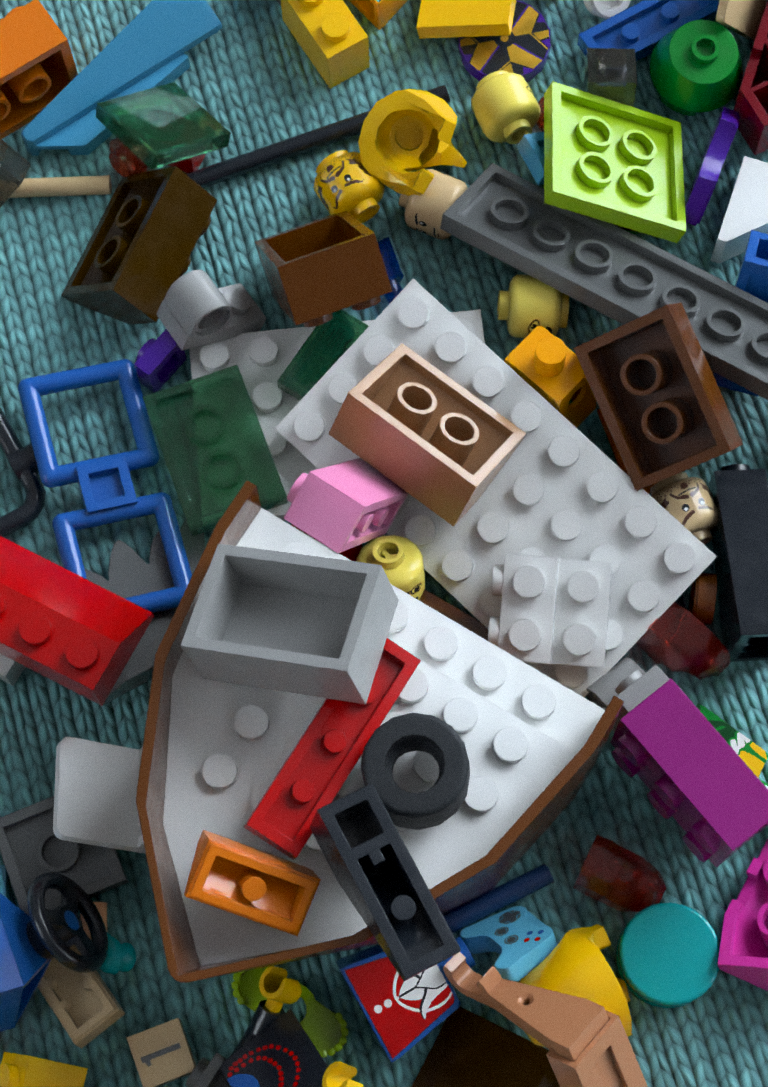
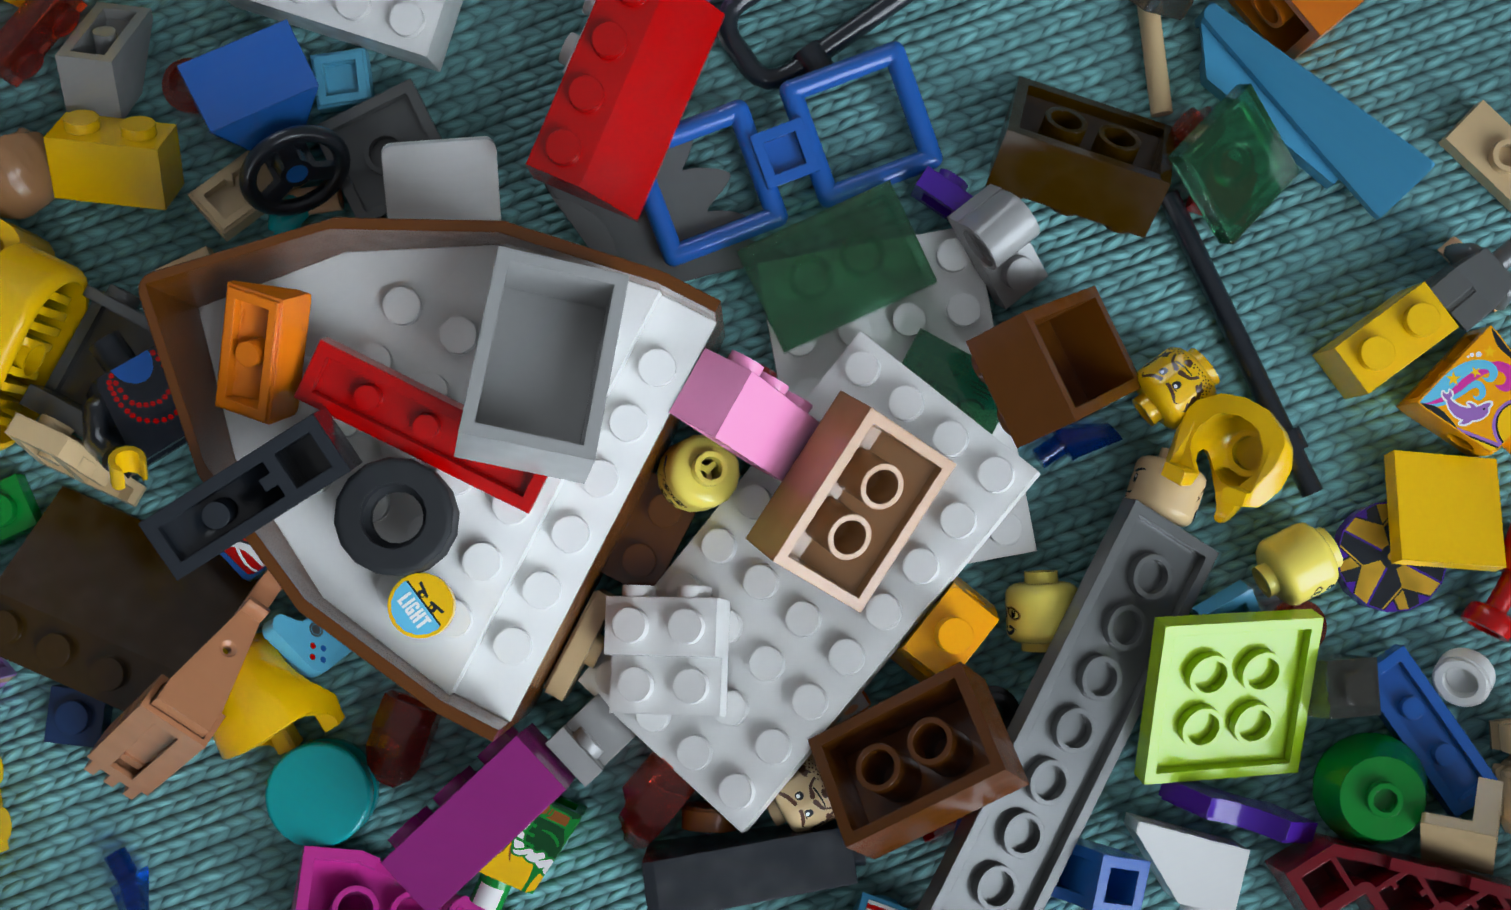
camera: 80 degrees right, 15 degrees up
(497, 760) = (421, 605): none -> tile

